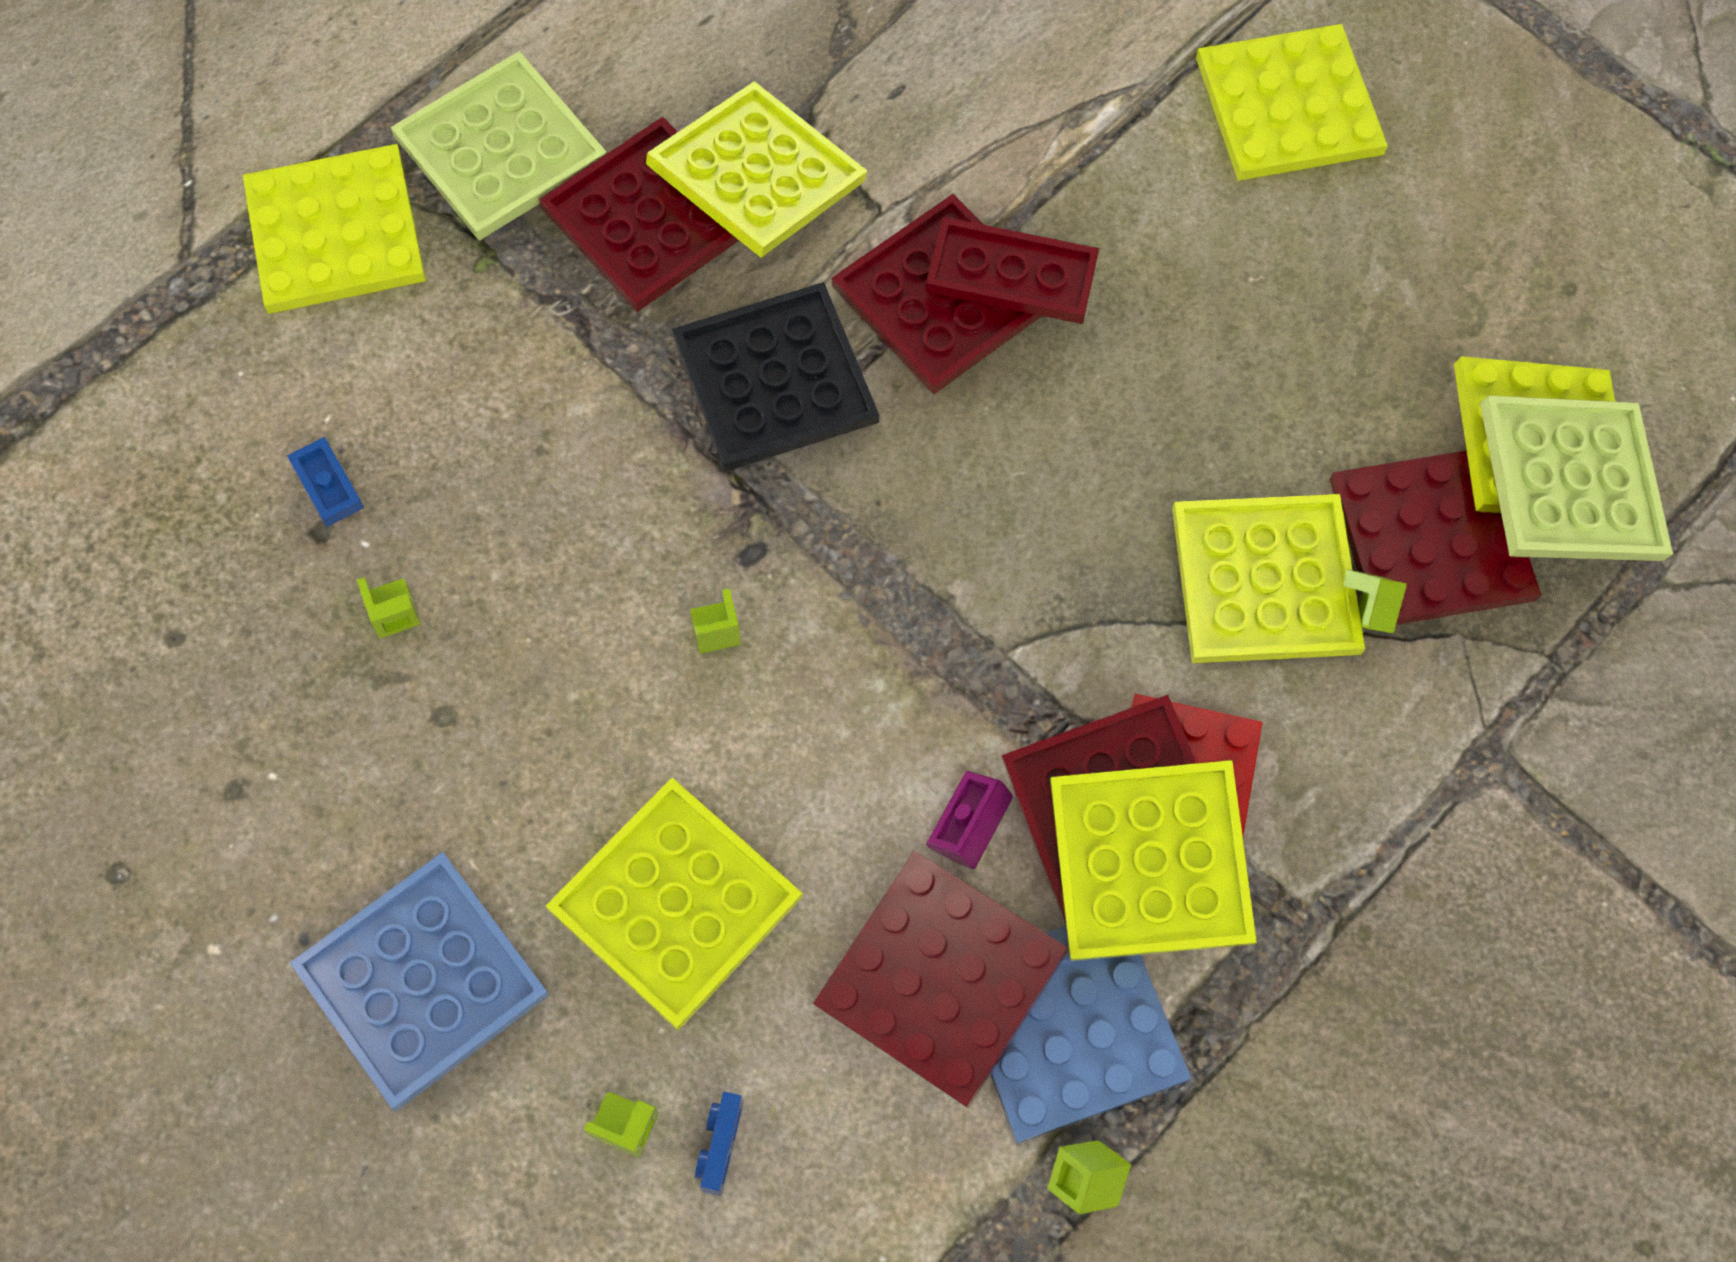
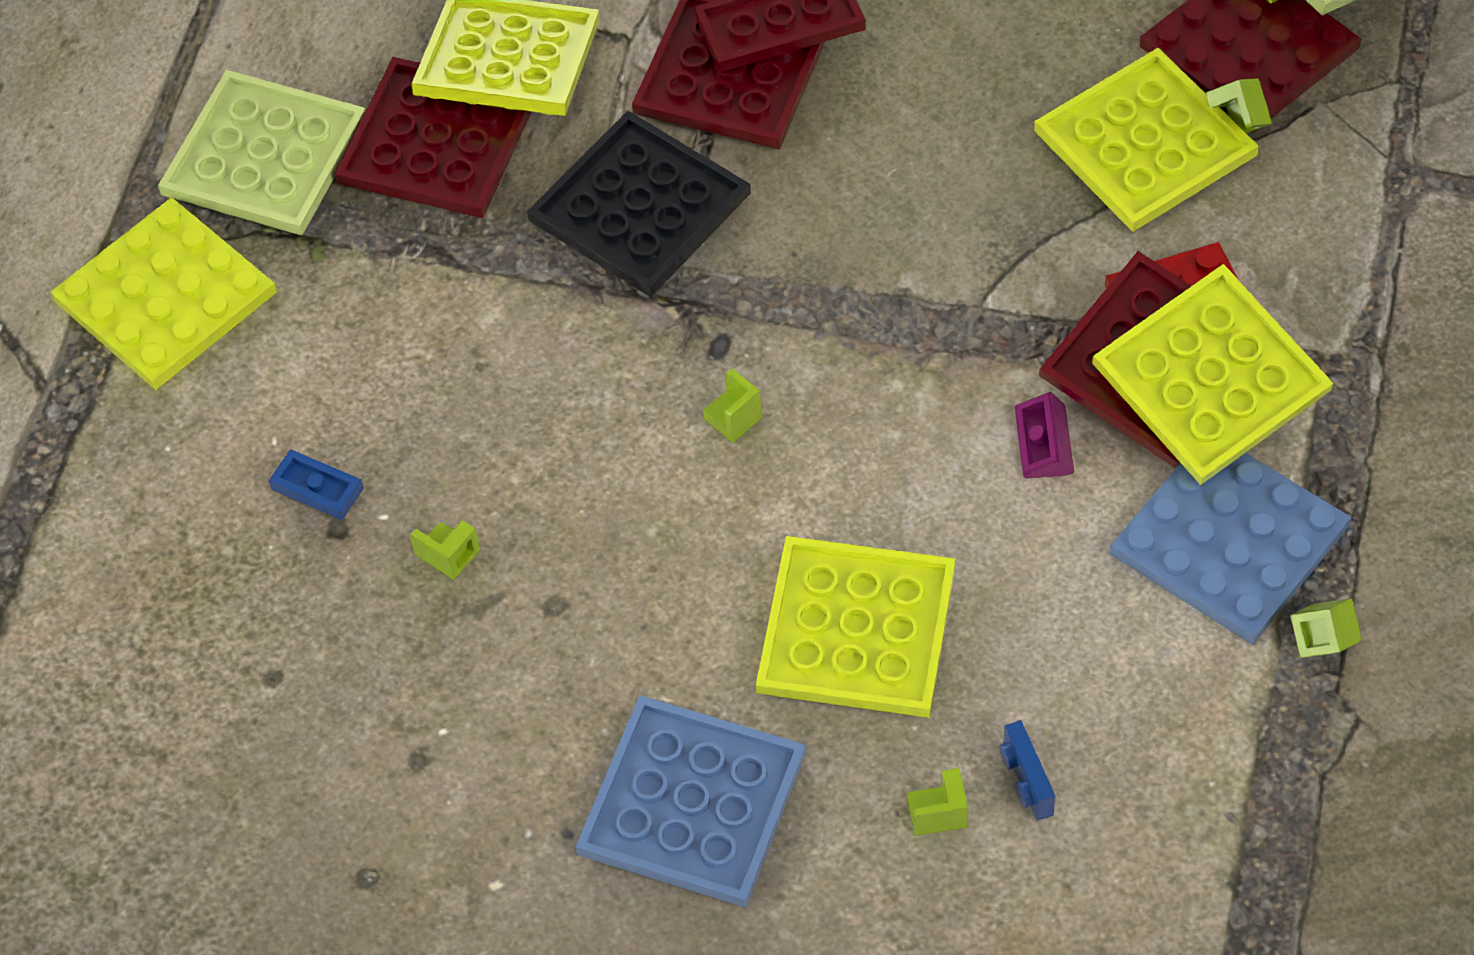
camera: 25 degrees left, 10 degrees down
(941, 978) = (1110, 554): dark red plate -> none

